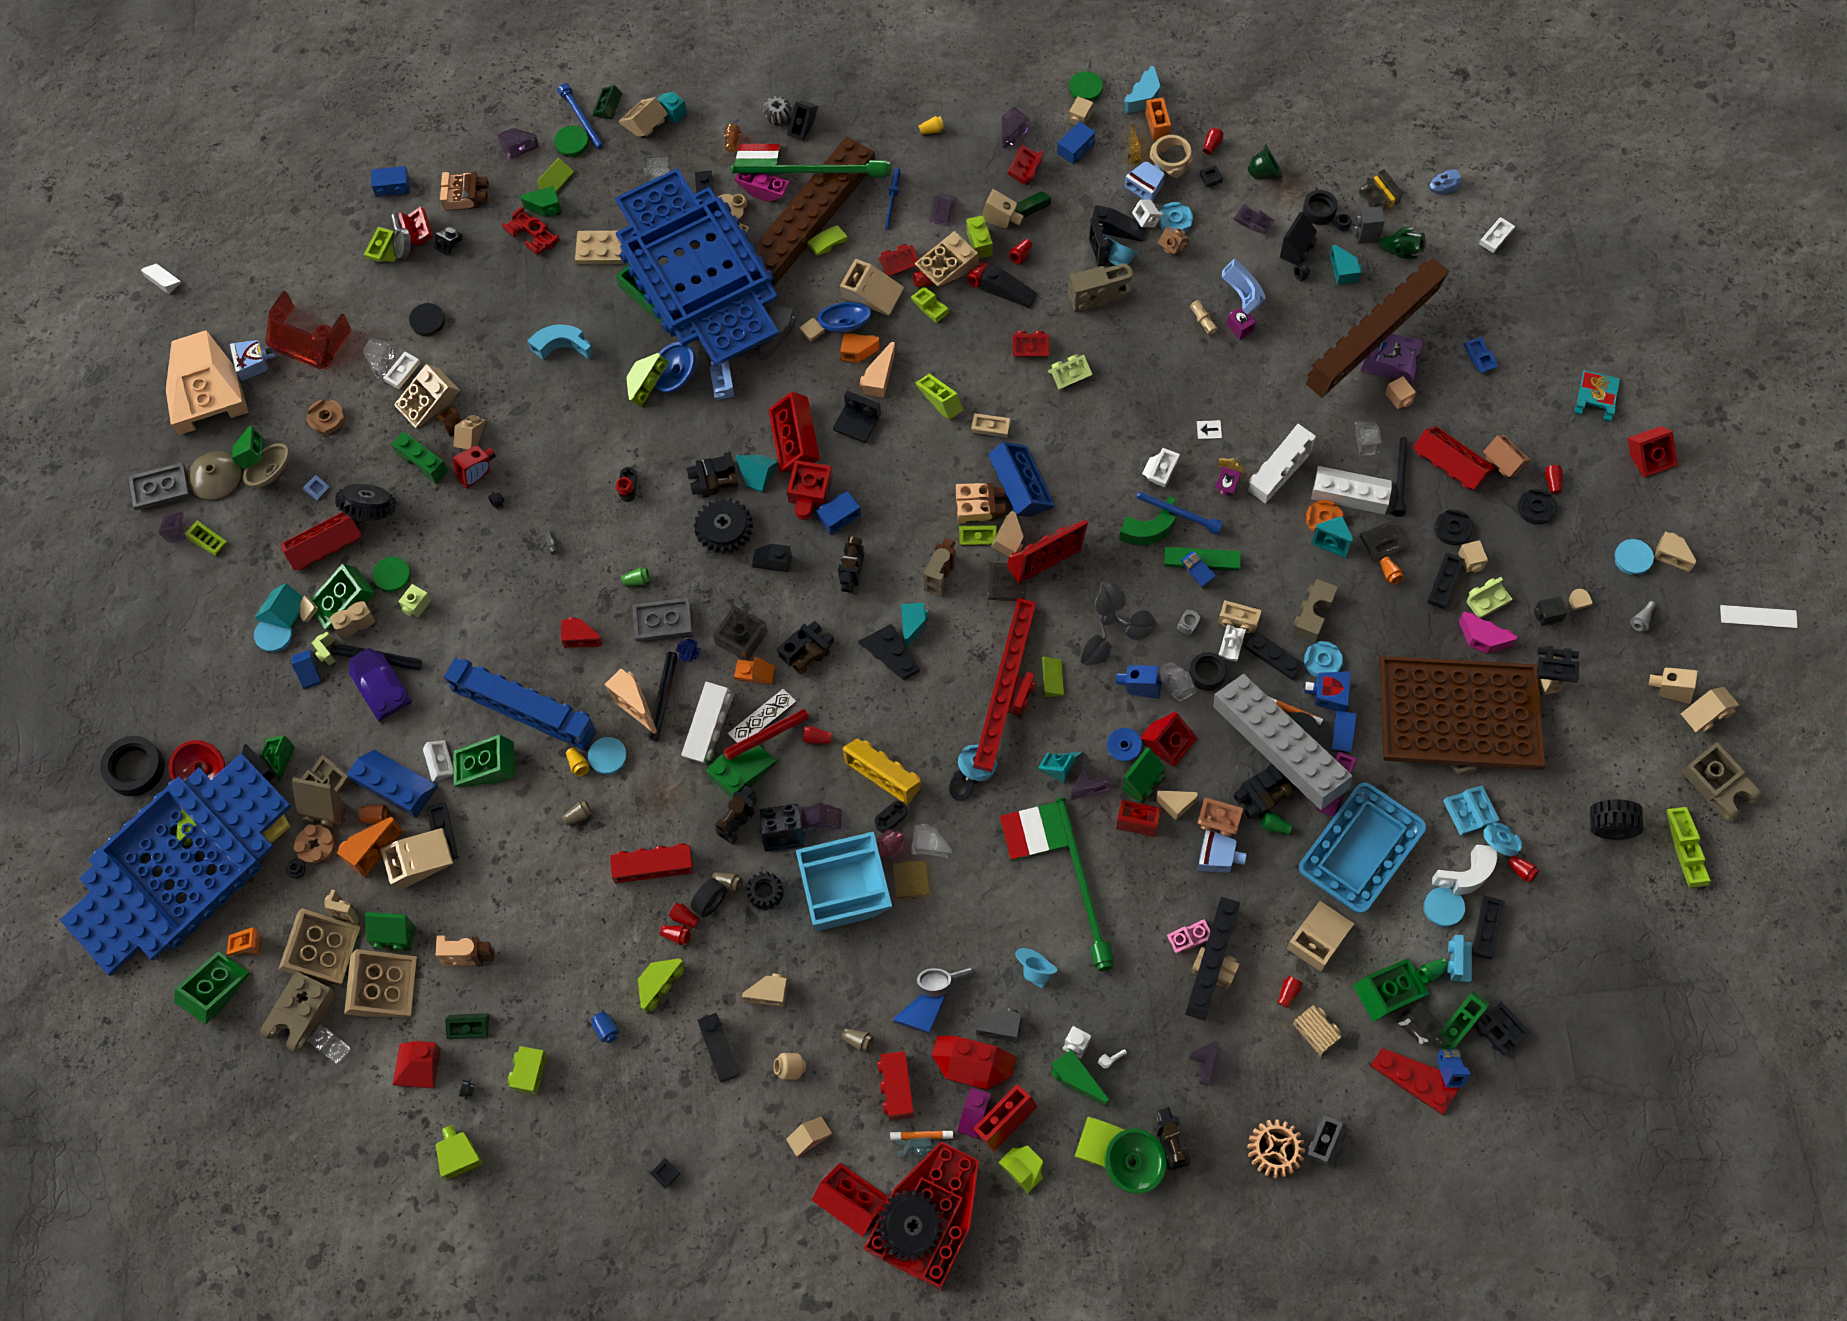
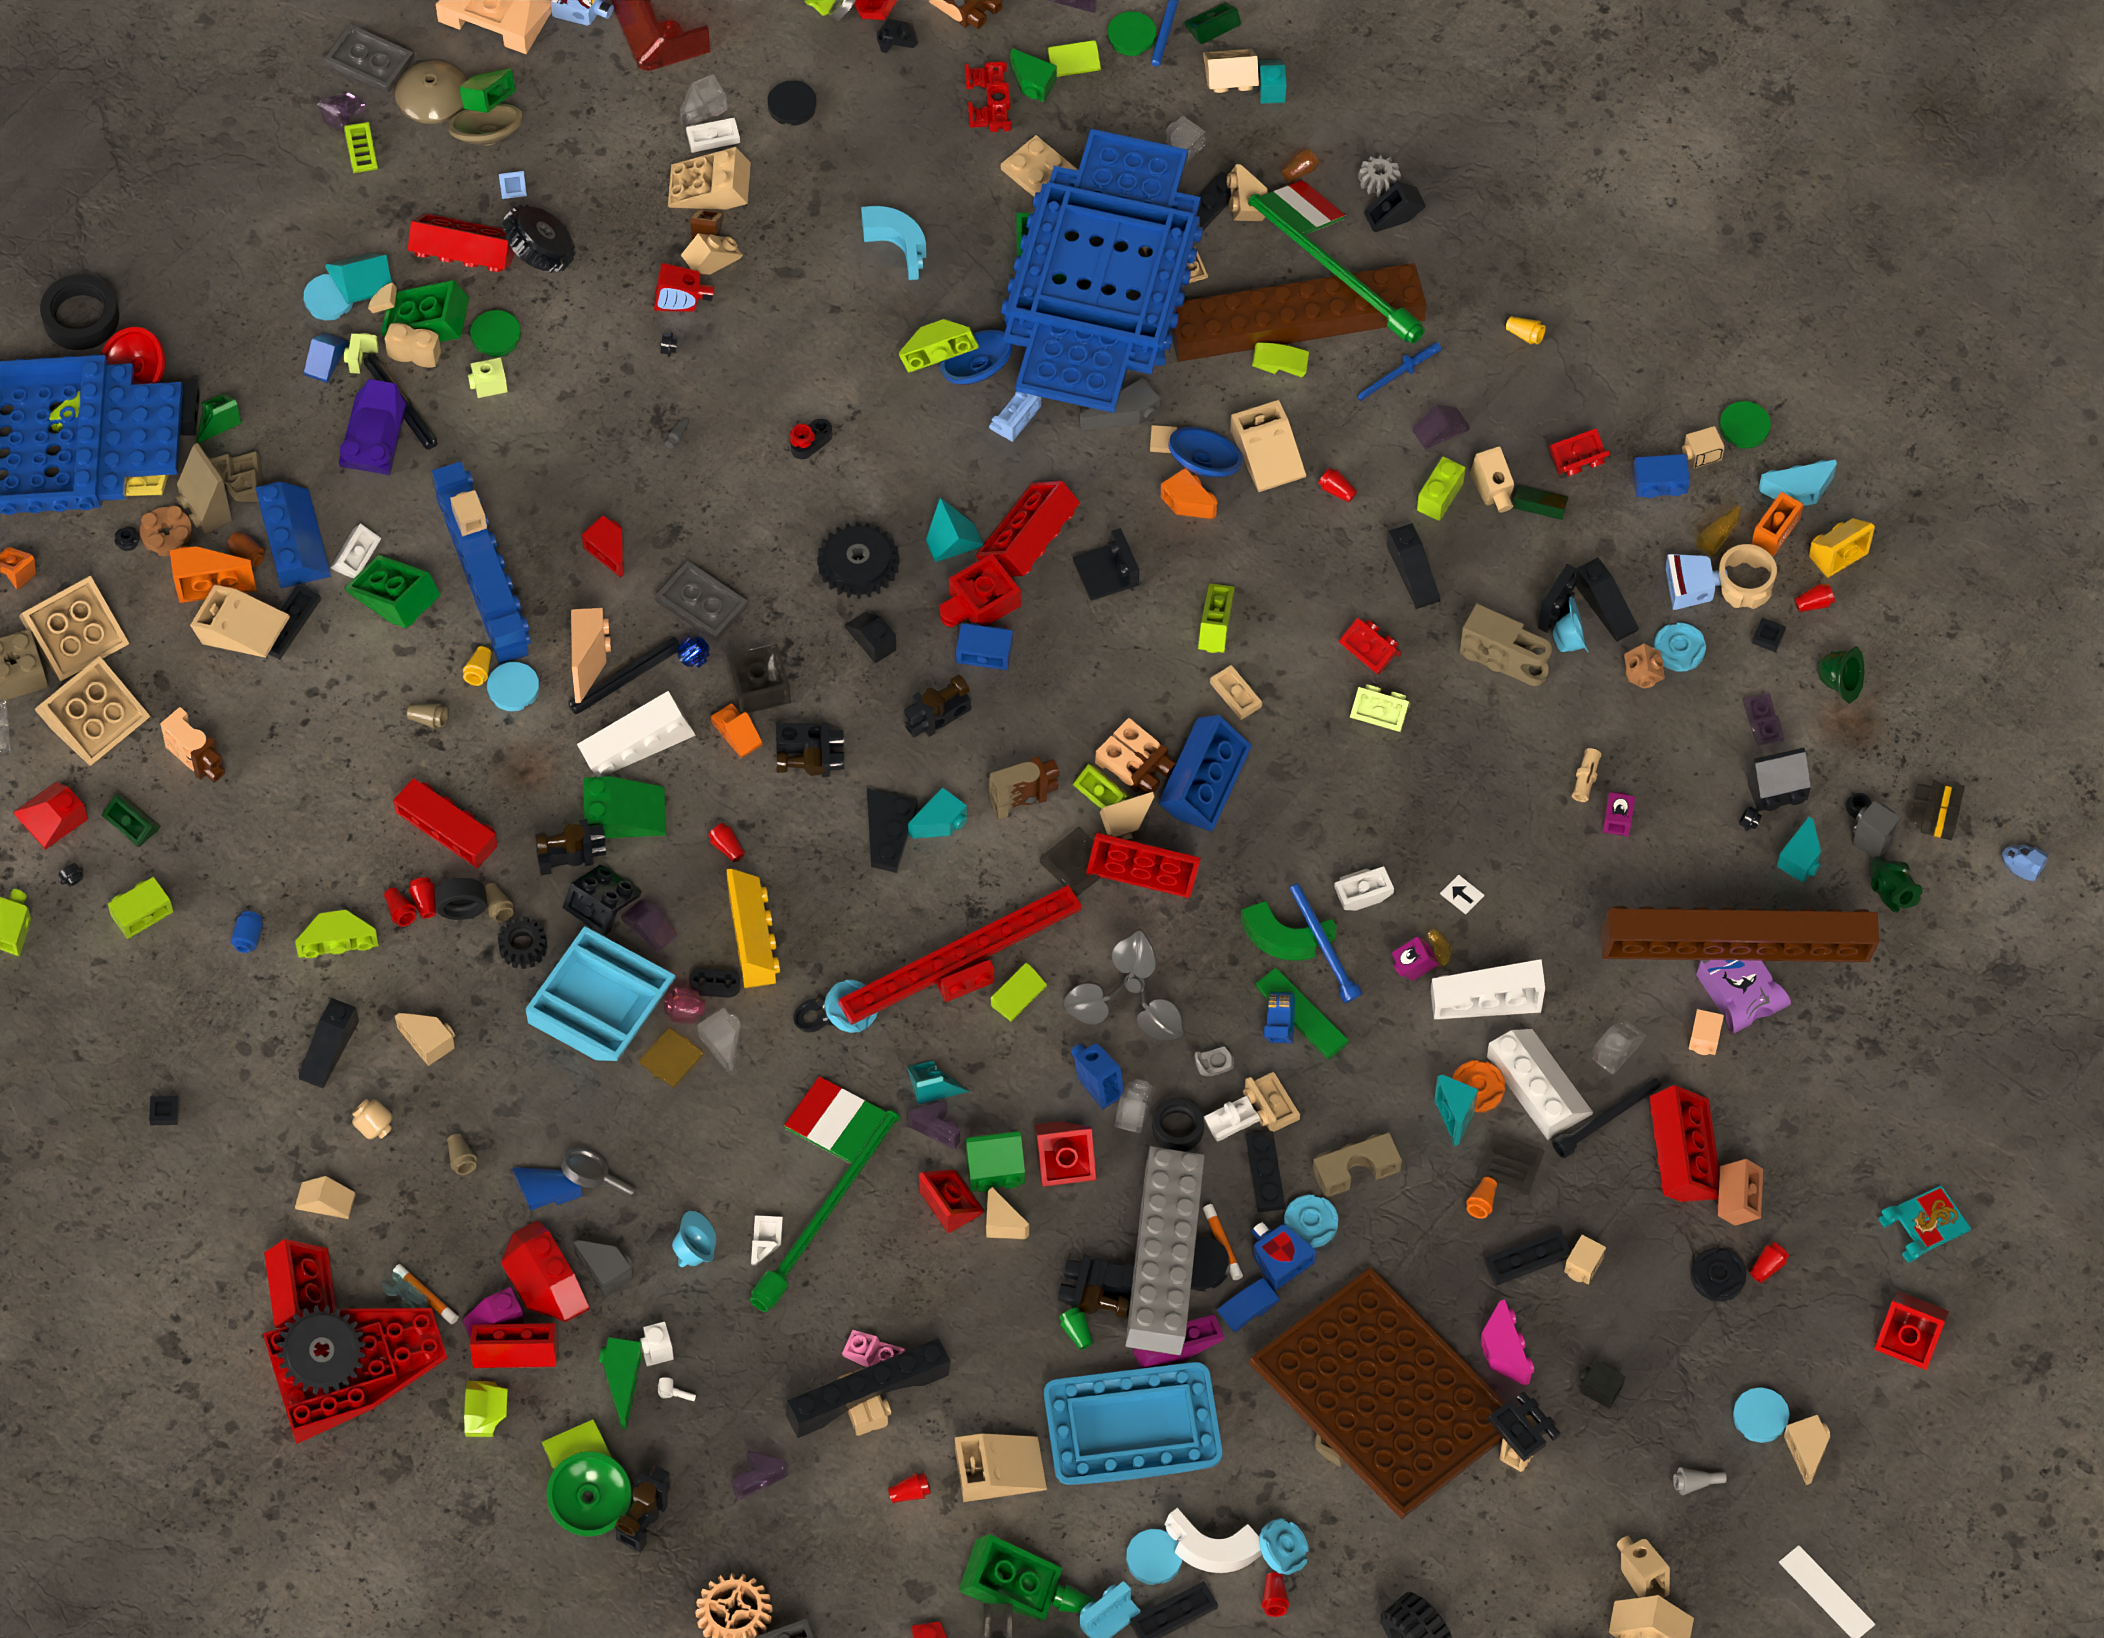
camera: 40 degrees right, 5 degrees down
(328, 425) = (592, 132): medium nougat plate -> none
(340, 909) = (124, 605): tan bracket -> none
(389, 931) = (147, 669): green slope -> none
(425, 460) = (638, 238): green arch -> none
(493, 680) = (468, 512): none -> tan brick
(636, 577) = (722, 539): bright green cone -> none
(709, 472) = (900, 494): black hips -> none
(720, 171) = (1242, 186): none -> tan slope
(736, 209) = (1219, 240): tan plate -> none
(762, 185) = (1272, 243): dark pink slope -> none
(762, 716) = (695, 779): white sticker -> none
(765, 734) = (678, 796): red axle -> none
(877, 374) = (1181, 540): light nougat slope -> none
(895, 1085) = (449, 1227): red brick -> none
(898, 260) = (1330, 442): red bracket -> none
(929, 304) = (1313, 516): lime slope -> none
(948, 260) = (1378, 485): tan slope -> none
(975, 275) = (1393, 522): red cone -> none
(1013, 126) = (1610, 401): clear purple slope -> none
(1019, 252) = (1470, 541): red cone -> none
(1067, 928) = (766, 1237): none -> white slope
(1124, 736) = (1012, 1108): blue piece -> none
(1147, 213) = (1649, 614): white brick -> none
(1197, 104) = (1841, 546): none -> yellow slope
(1219, 853) = (987, 1302): light blue torso -> none
(1220, 816) = (1026, 1269): nougat bracket -> none
(1244, 284) = (1668, 777): light blue arch -> none
(1317, 1029) = (895, 1546): tan brick -> none
(1321, 196) = (1856, 751): black tyre -> none
(1453, 527) = (1603, 1215): black tile -> none
(1471, 810) = (1289, 1494): medium azure slope -> none
(1479, 355) = (1844, 1071): blue slope -> none
(1488, 598) = (1554, 1314): yellowish green bracket -> none
(1497, 235) = (2015, 964): white plate -> none
(1580, 599) = (1650, 1403): tan tile -> none

